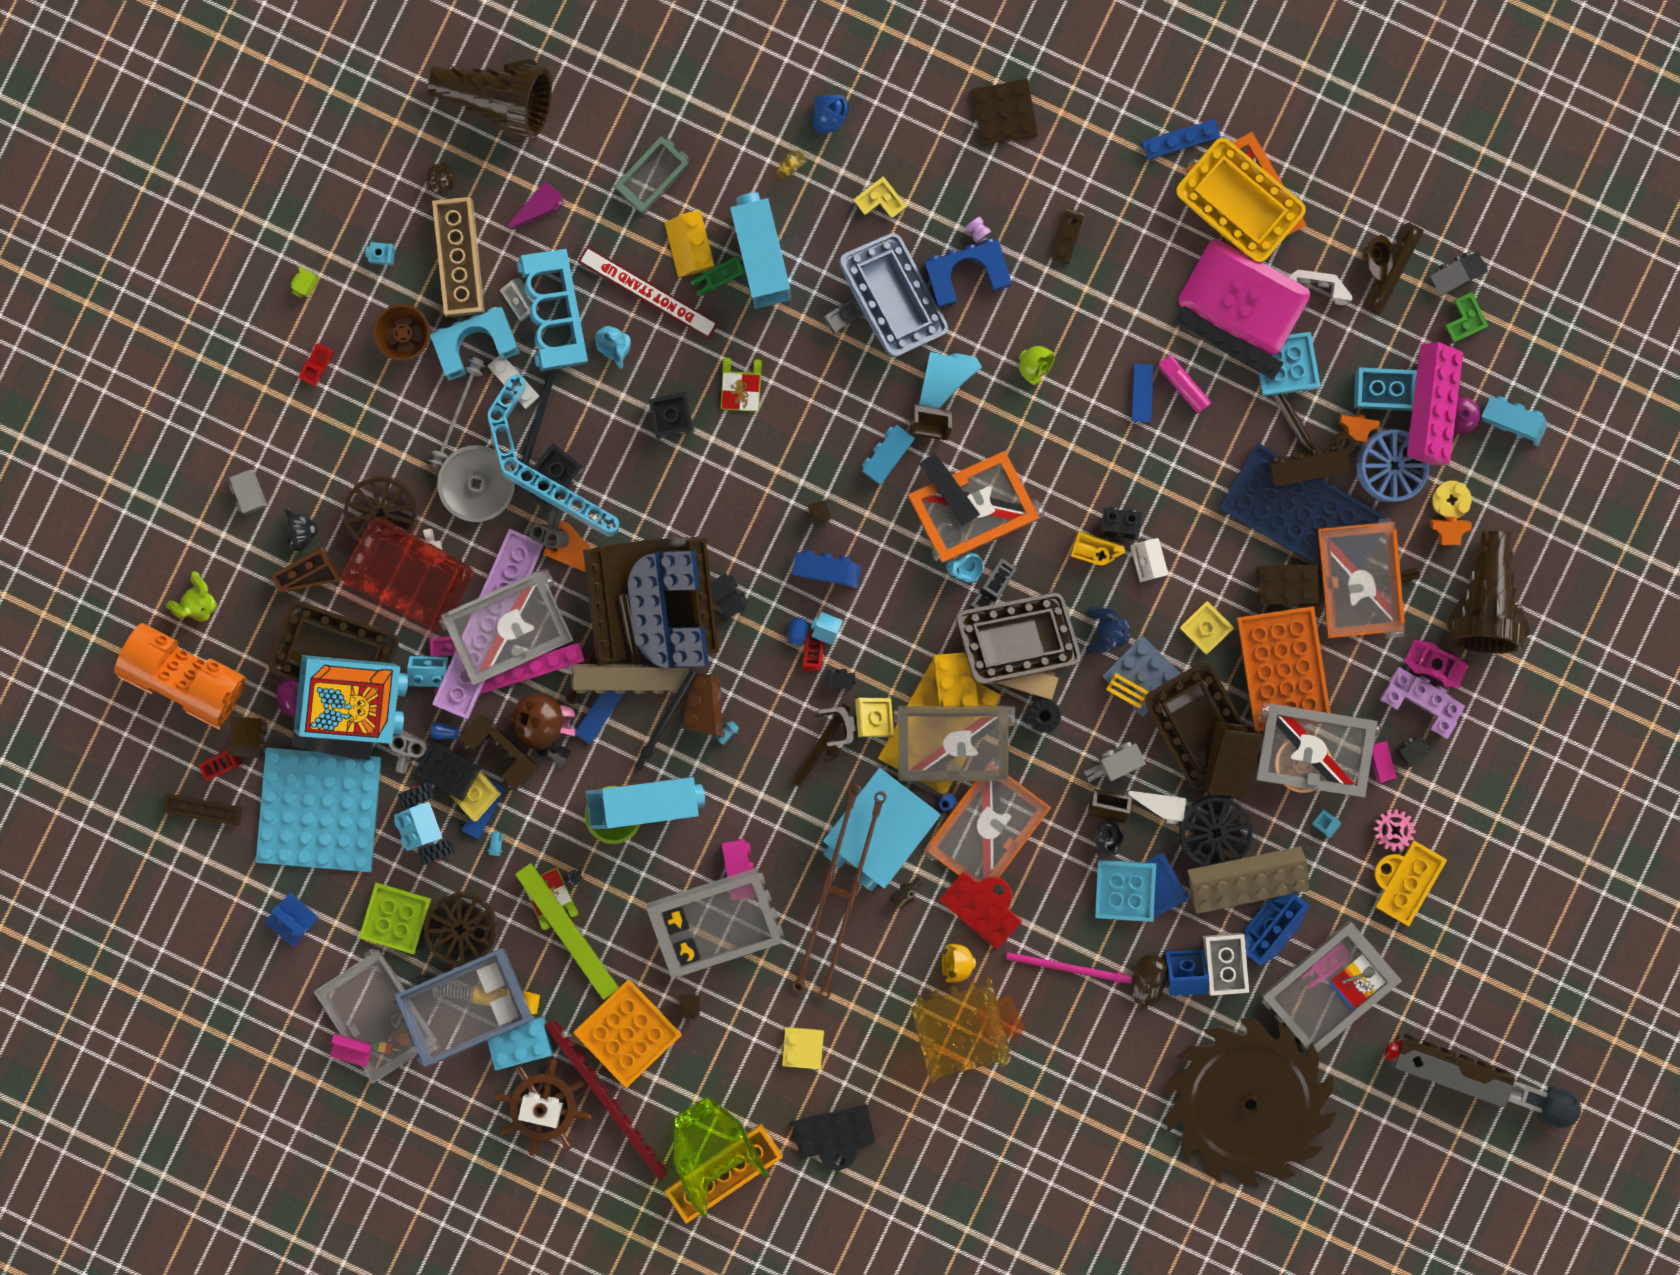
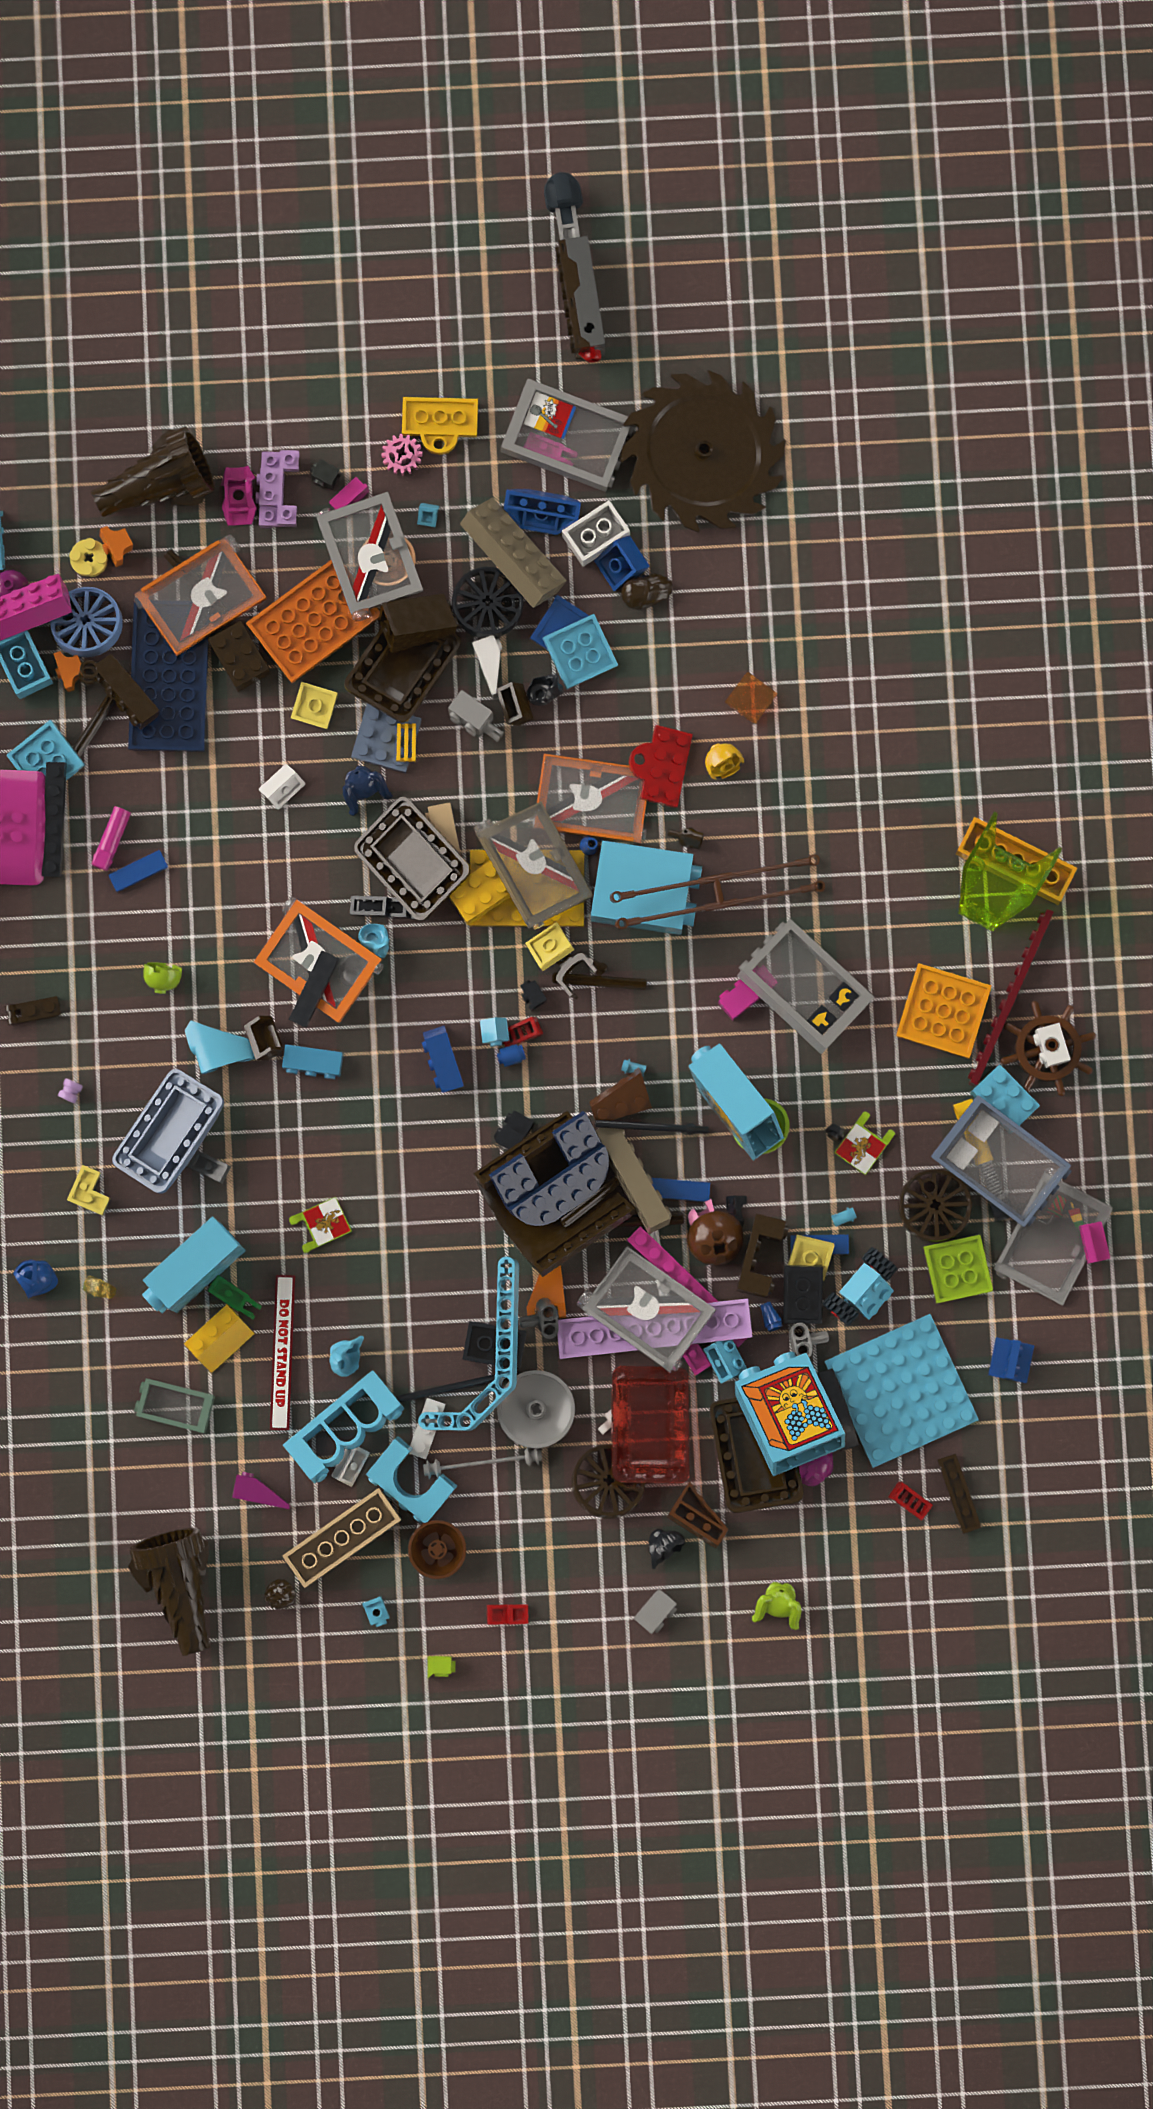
camera: 120 degrees left, 5 degrees down
(157, 664) = (853, 1597): orange cylinder -> none
(247, 737) = (872, 1485): dark brown slope -> none
(567, 931) = (884, 1112): lime tile -> none
(671, 415) = (381, 1269): black brick -> none
(689, 1005) = (889, 969): dark brown brick -> none
(803, 1048) = (870, 853): light yellow plate -> none
(819, 512) = (396, 1092): dark brown brick -> none
(834, 1135) = (930, 786): black plate -> none
(961, 1030) = (777, 724): clear yellow windscreen -> none
(987, 255) = (88, 1069): blue arch -> none
(1034, 720) = (469, 811): black gear -> none
(1088, 545) = (298, 844): yellow piece -> none
(1117, 977) = (658, 619): dark pink bar -> none
(1121, 524) = (263, 826): black brick -> none

